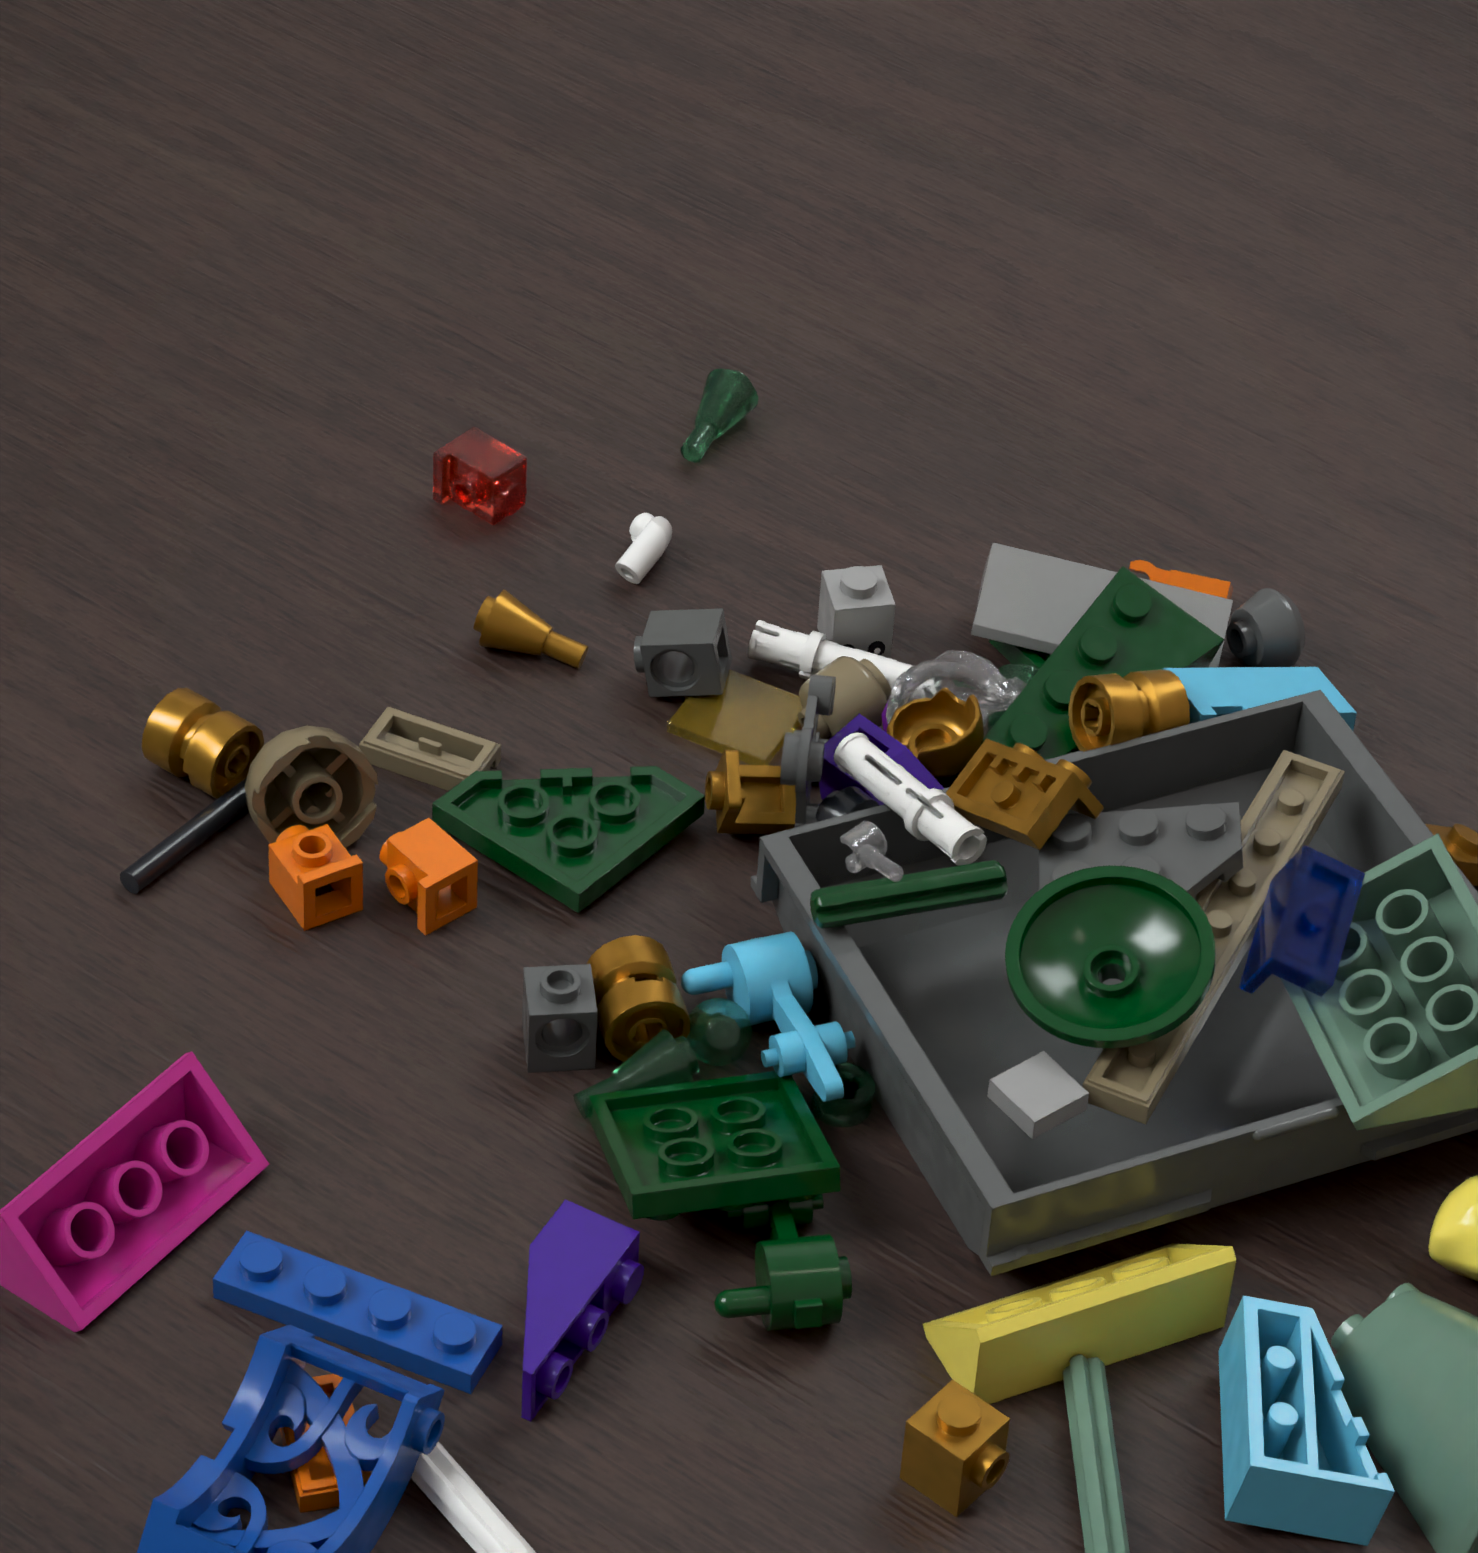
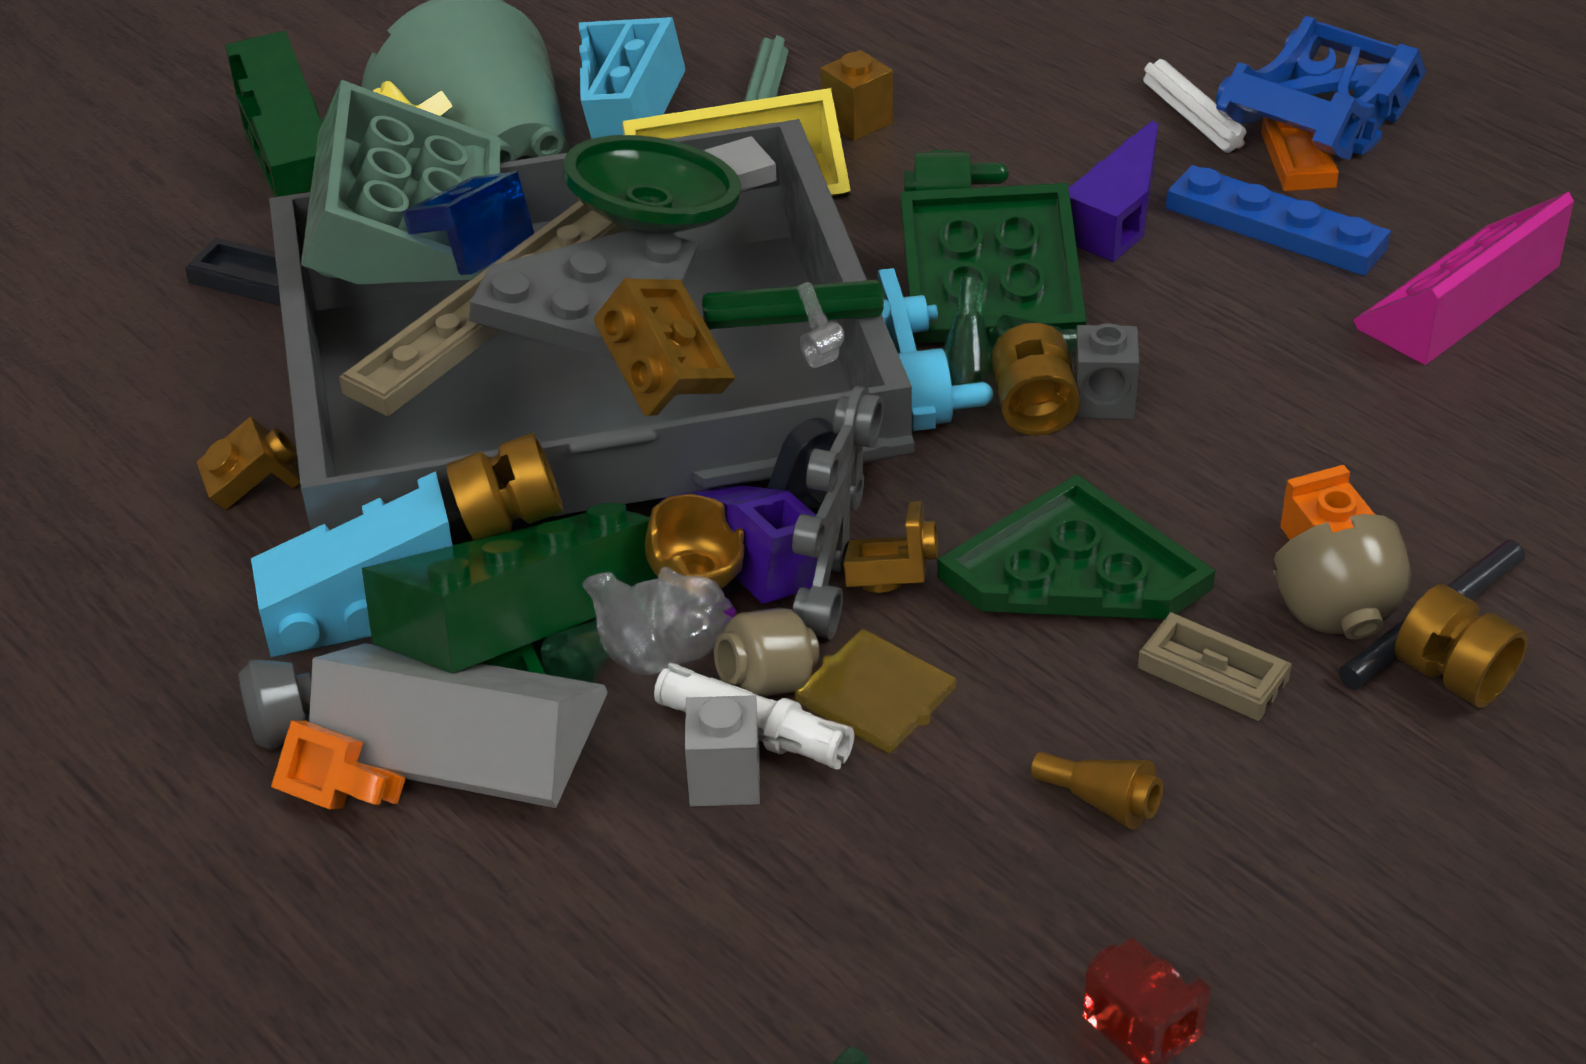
camera: 165 degrees left, 0 degrees up
(430, 874) = (1217, 510): orange brick -> none
(650, 540) = (936, 889): white arm -> none
(705, 650) = (929, 713): dark grey brick -> none
(925, 811) = (756, 364): white pin -> none

